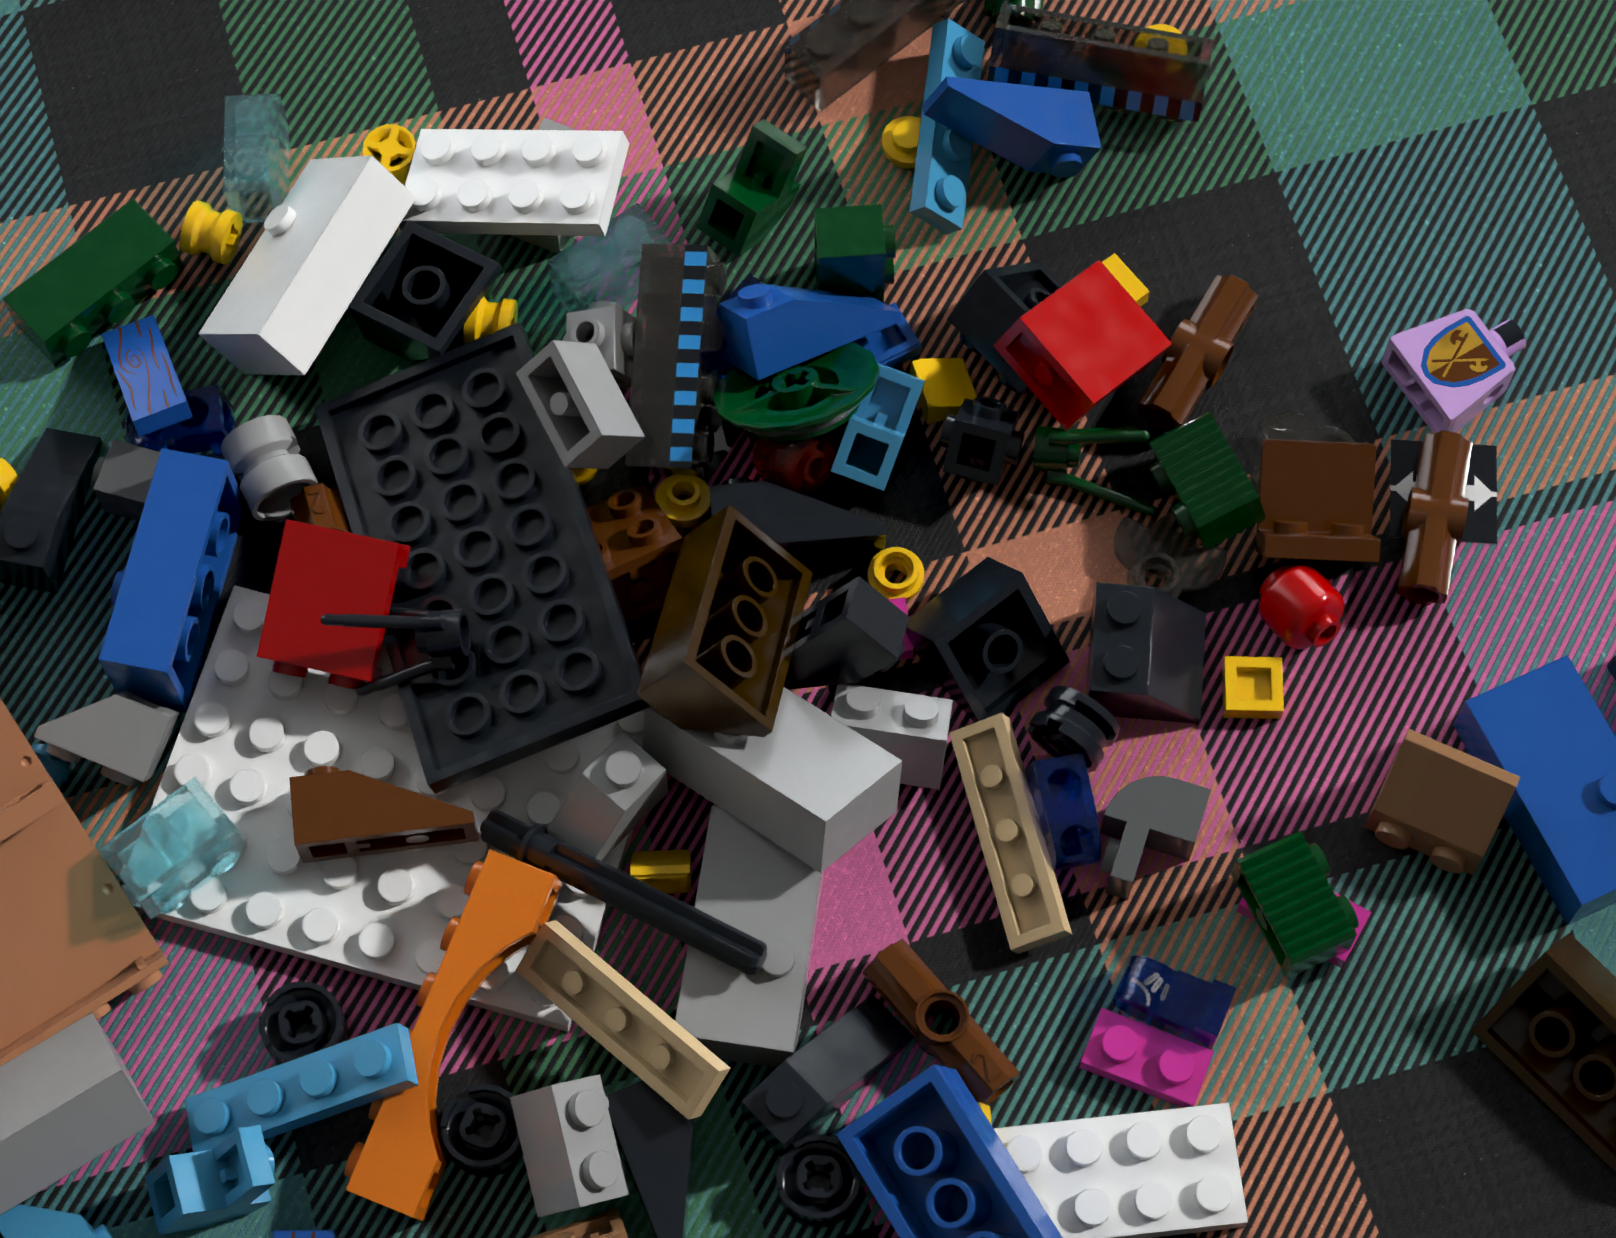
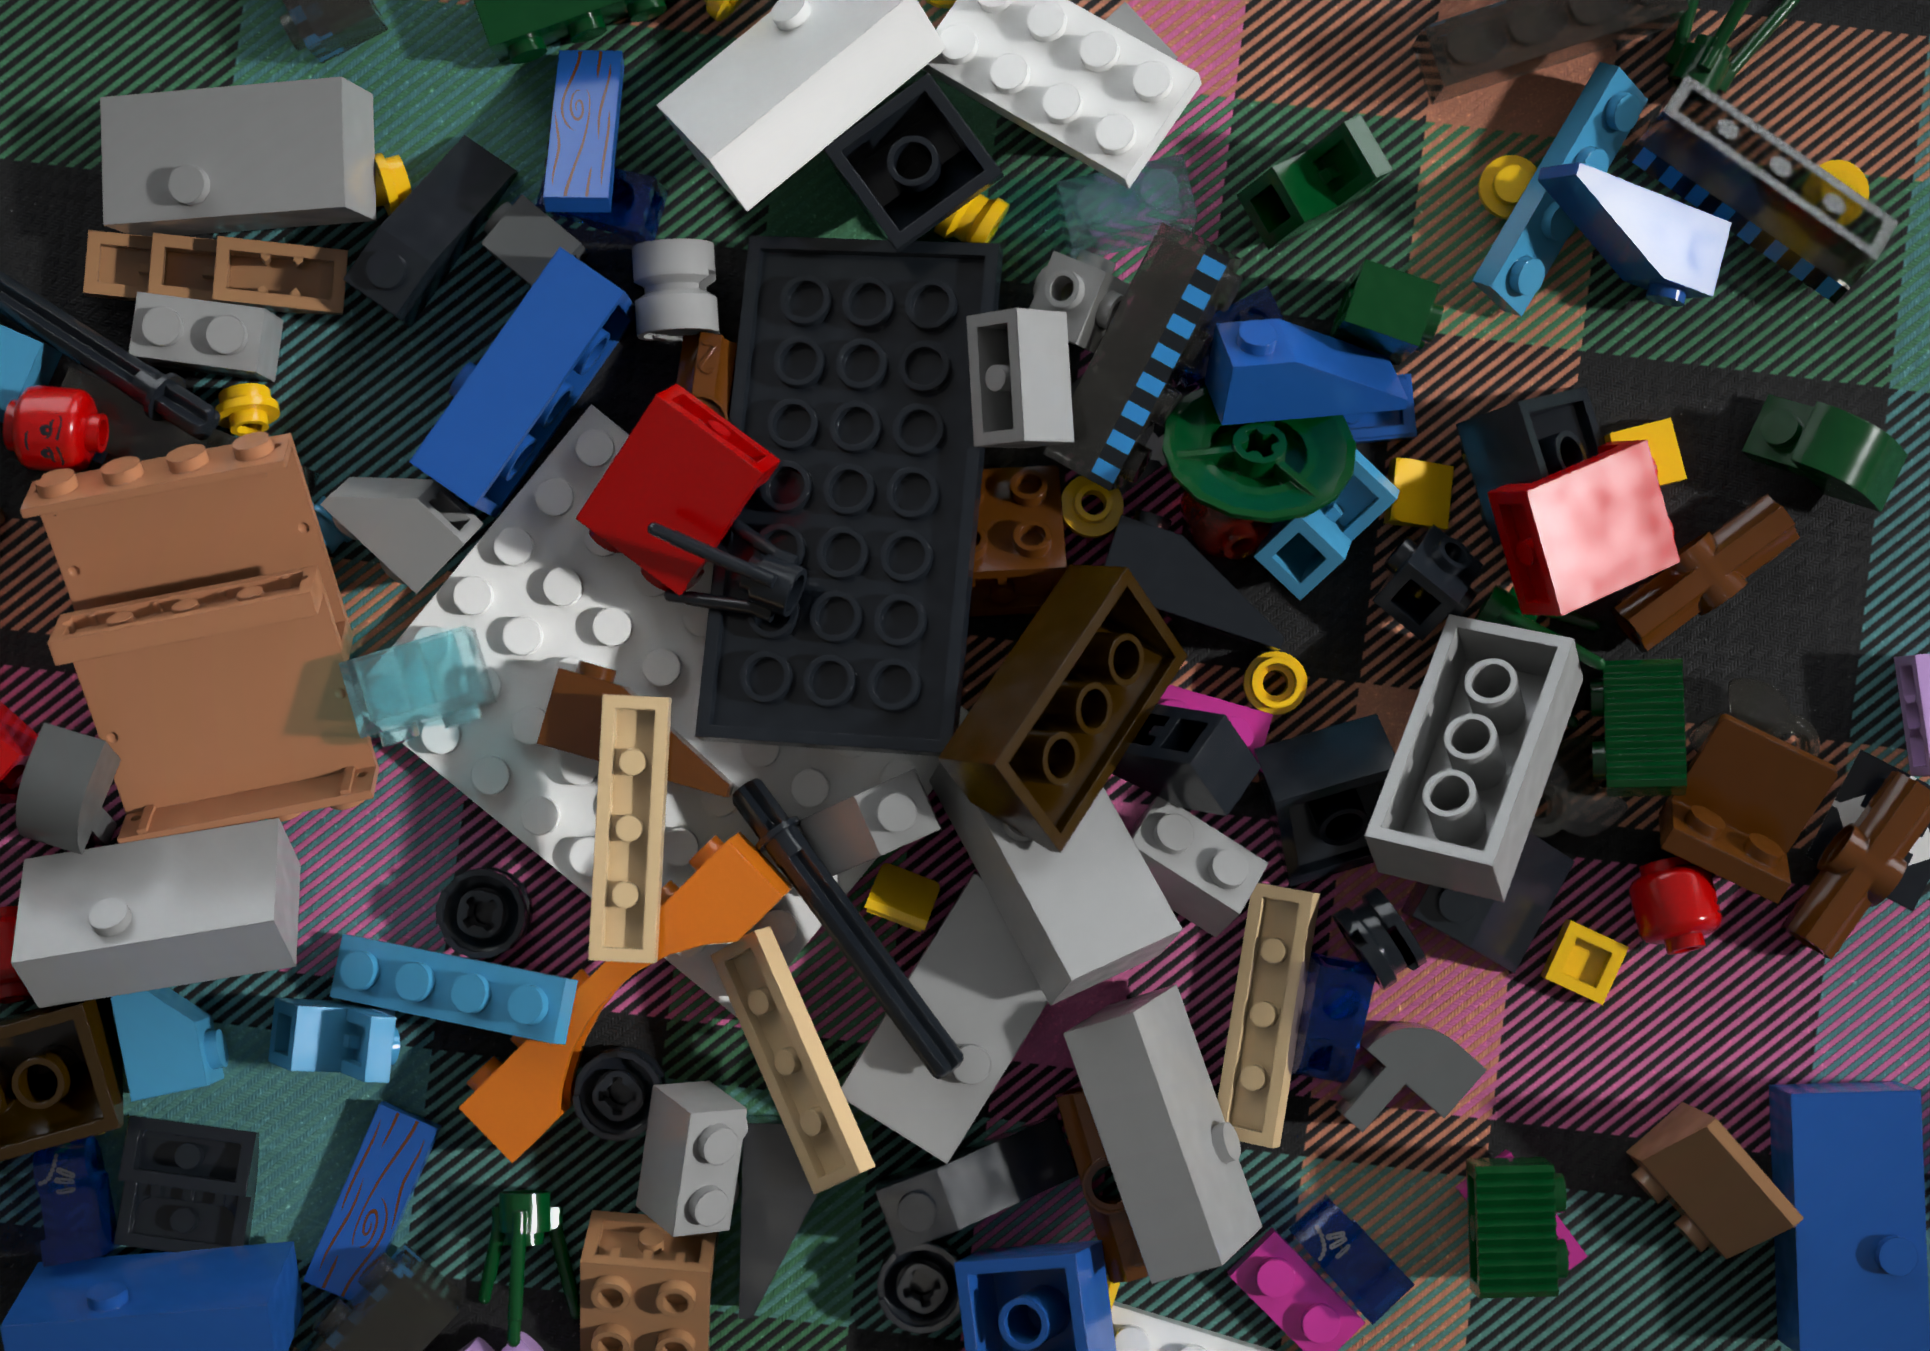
camera: 25 degrees right, 20 degrees up
(402, 872) = (630, 829): none -> tan plate
(965, 948) = (1164, 1134): none -> light grey brick
(1078, 541) = (1475, 757): none -> light grey brick
(1248, 216) = (1830, 448): none -> dark green brick

